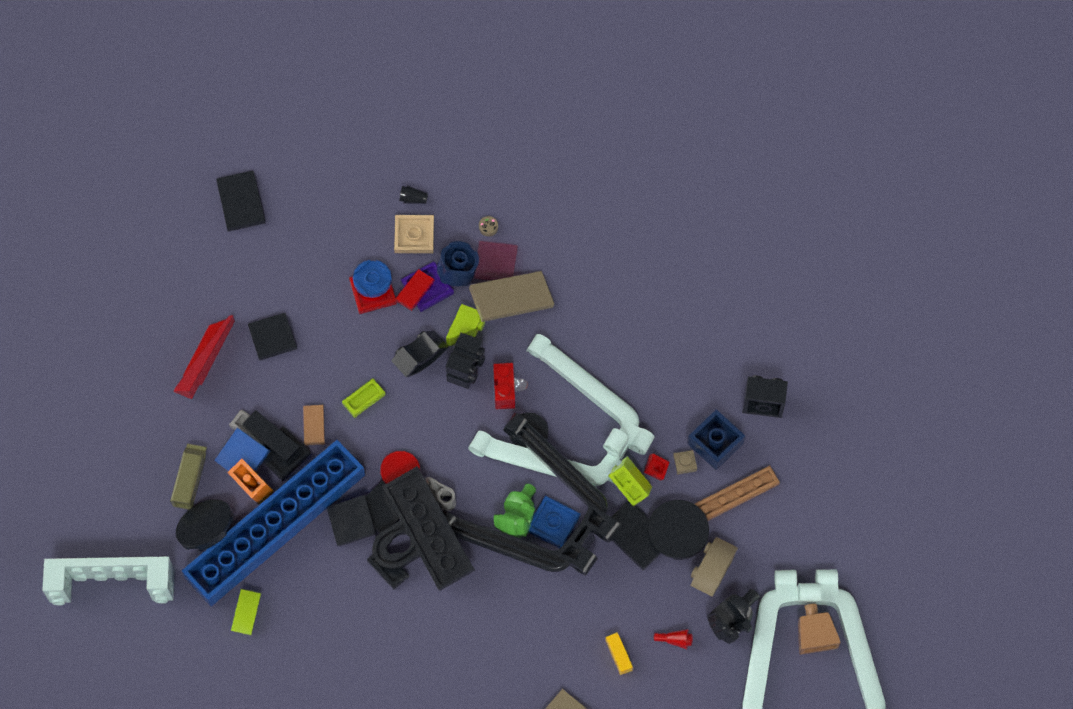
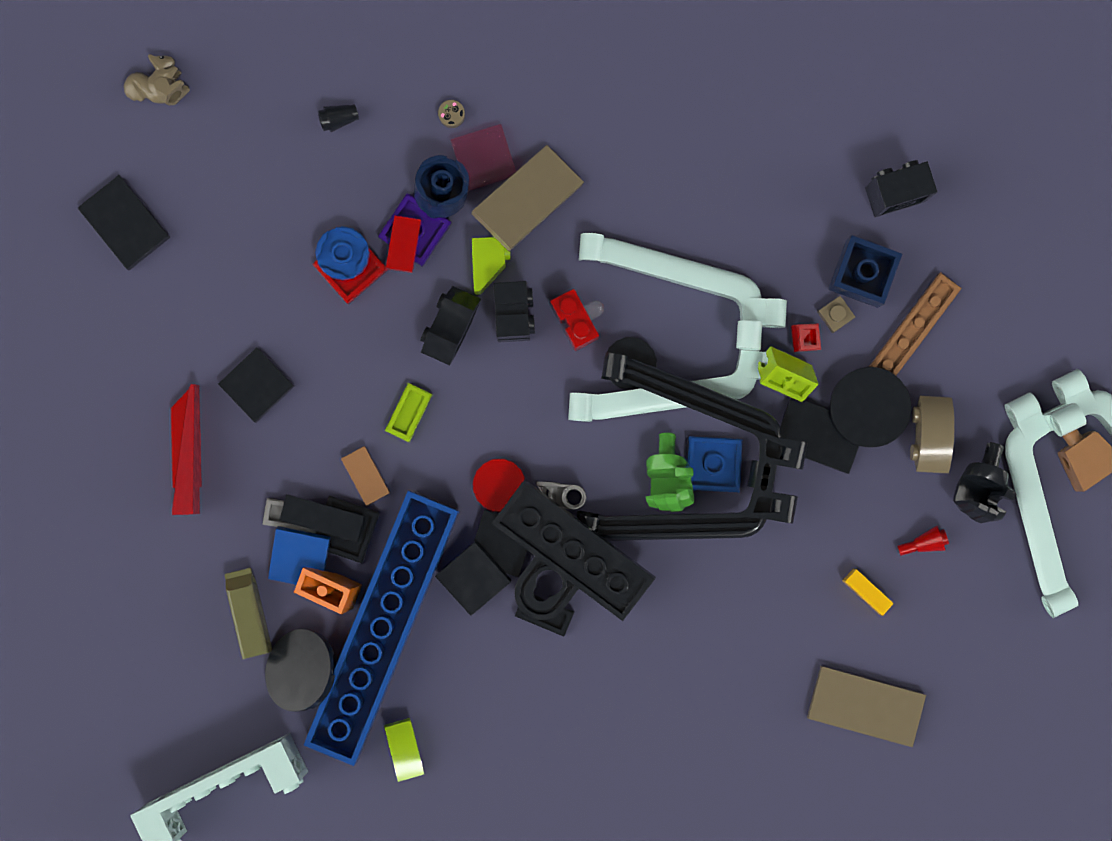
camera: 25 degrees left, 20 degrees up
(308, 130) = (160, 86): none -> dark tan animal
(414, 234) = (364, 168): tan plate -> none

